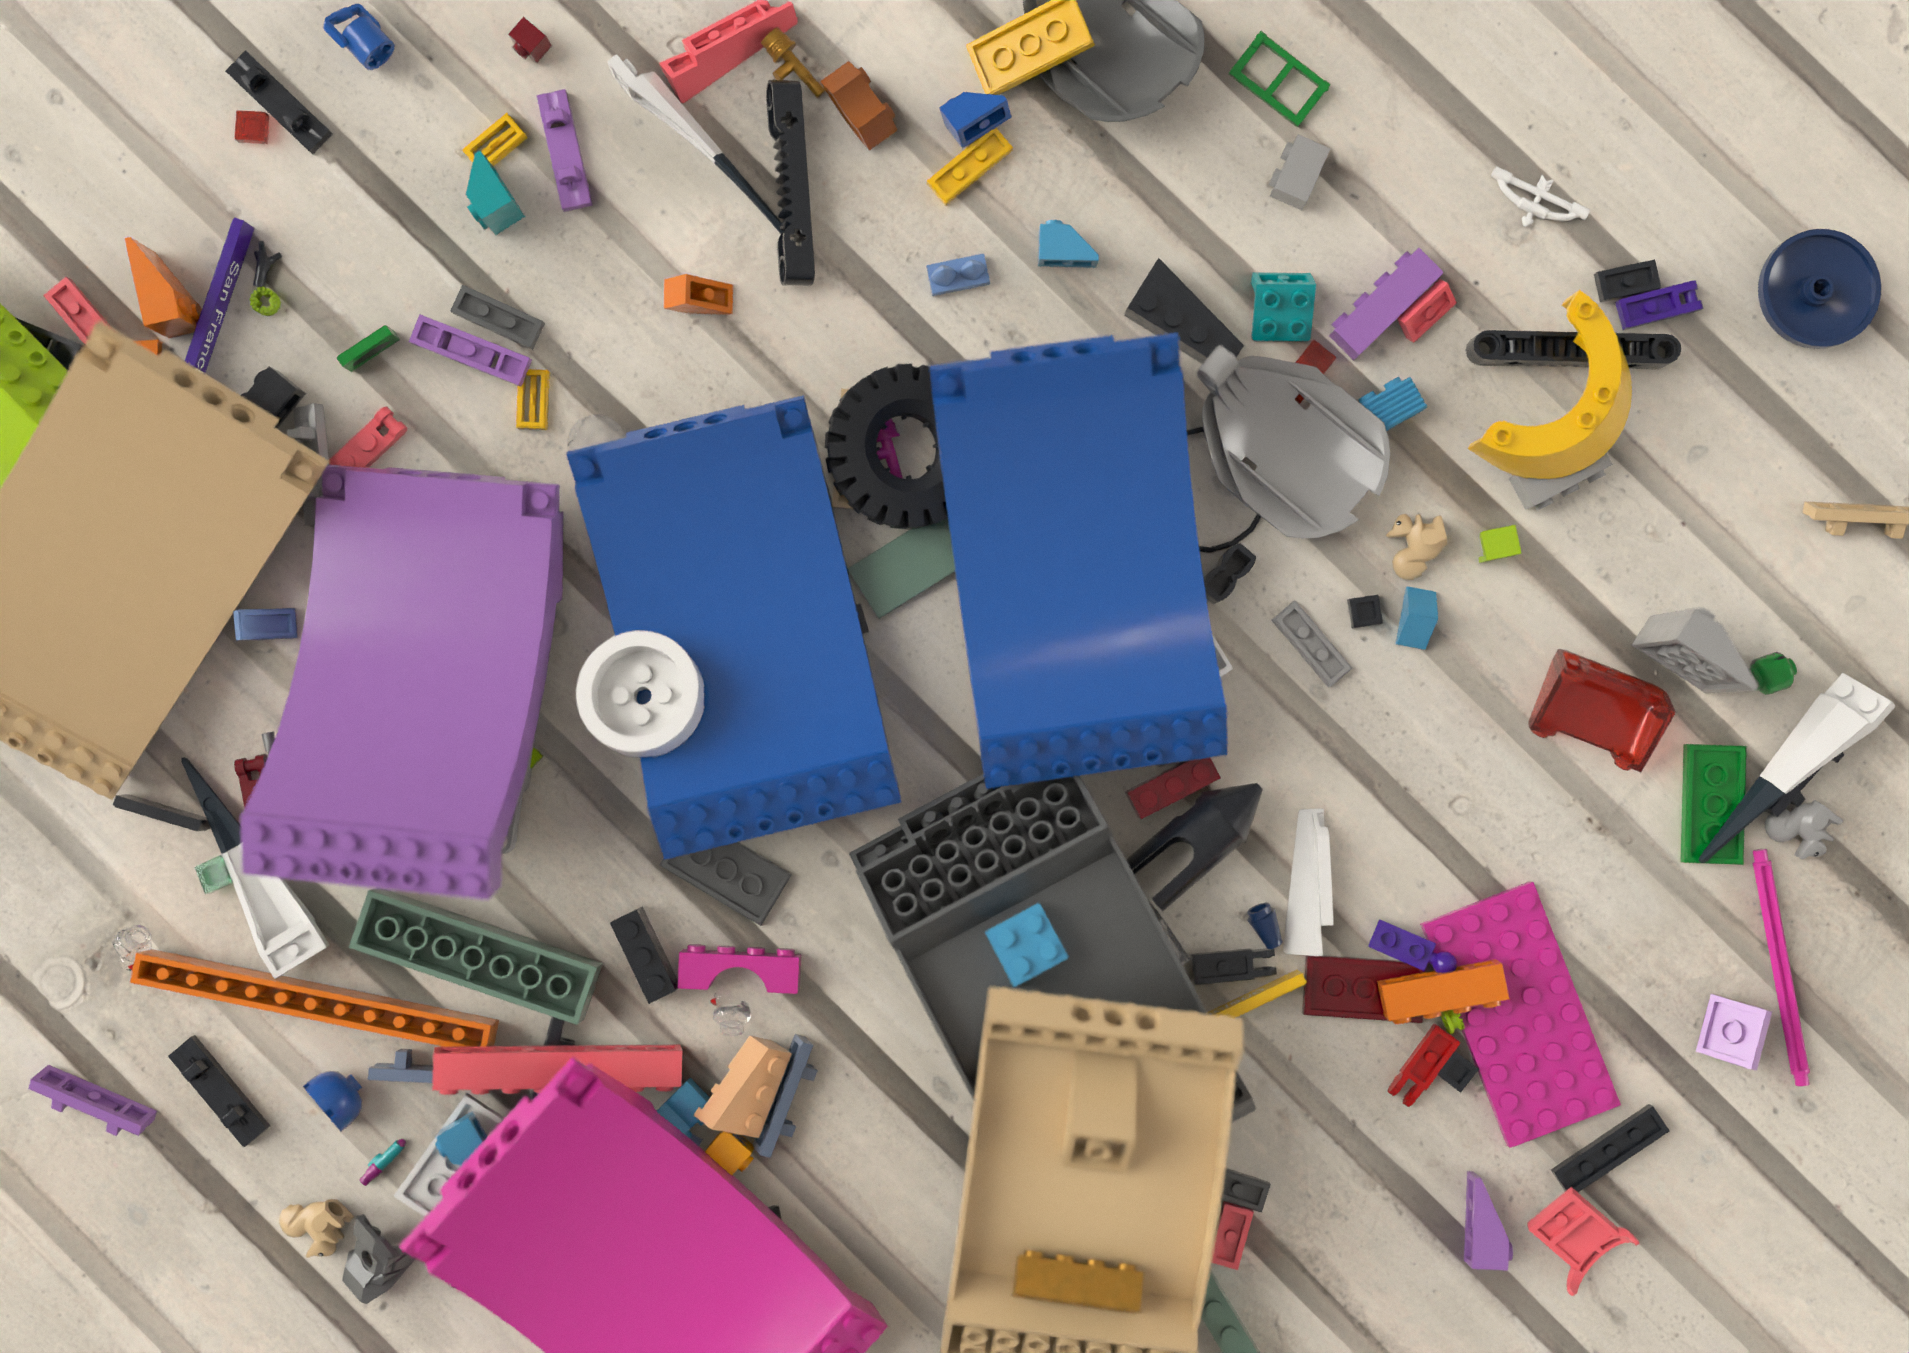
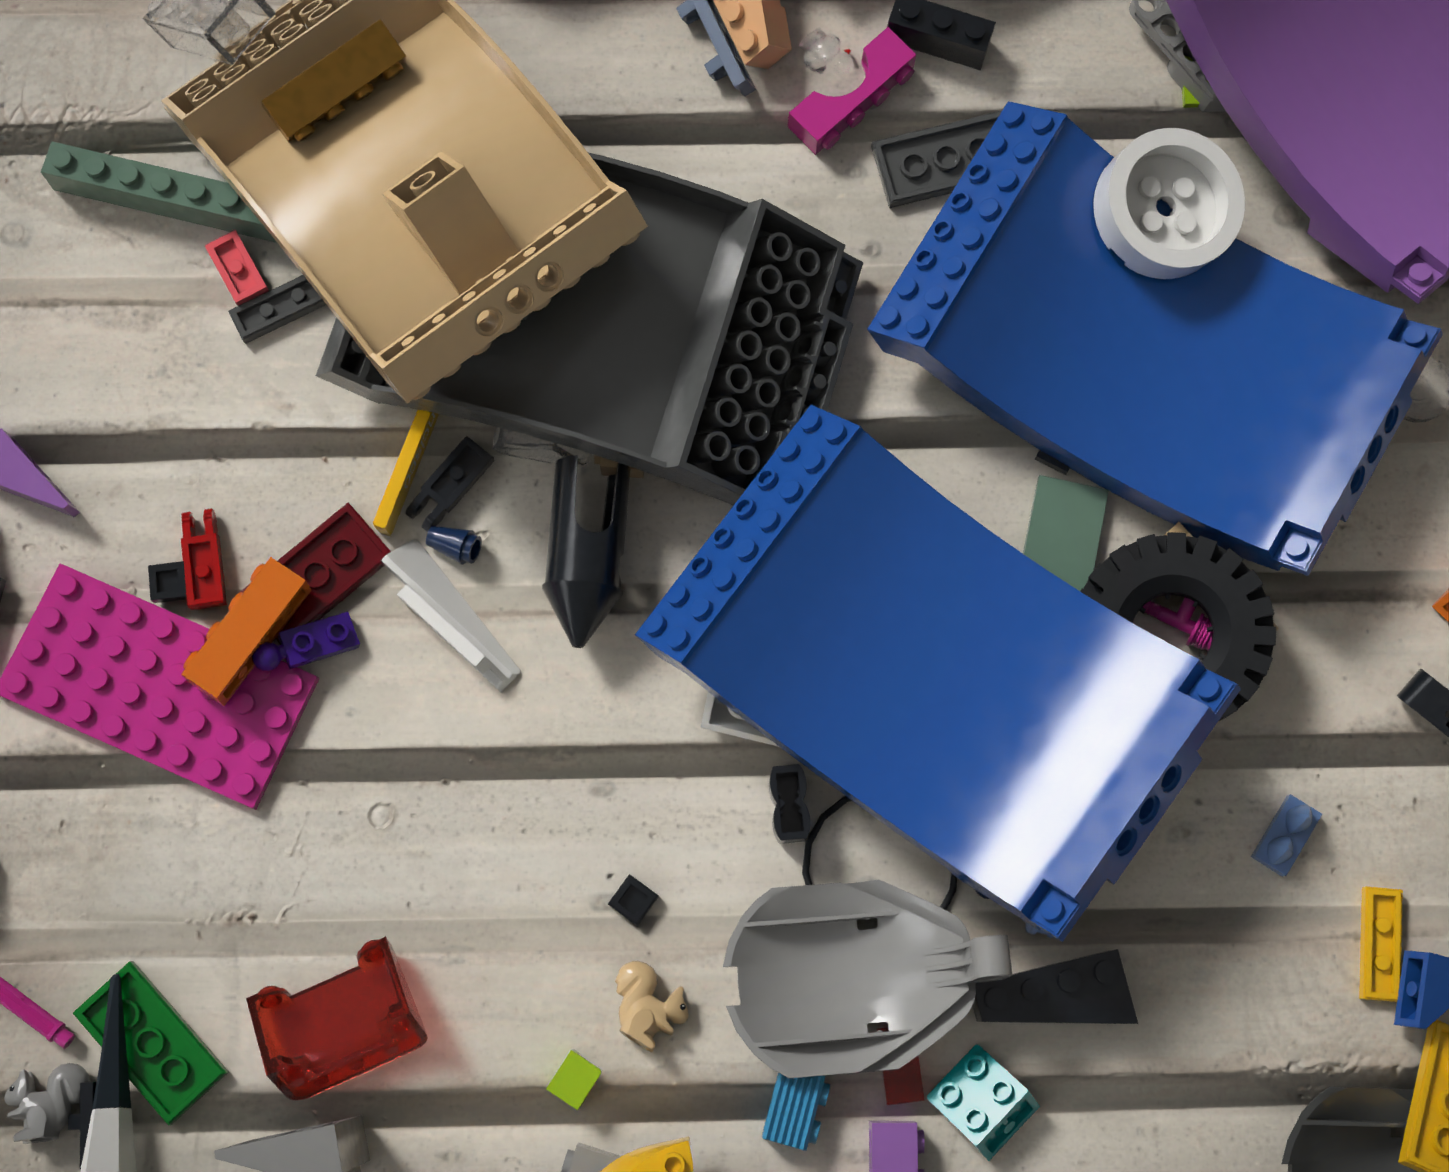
camera: 135 degrees right, 10 degrees down
(1026, 944) = (645, 311): dark azure brick -> none
(1063, 247) = (1228, 950): dark azure slope -> none
(1171, 786) = (652, 573): dark red brick -> none
(1311, 644) = (651, 823): light grey tile -> none
(1417, 618) = (582, 940): dark azure slope -> none
(1452, 1021) = (210, 617): lime bush -> none

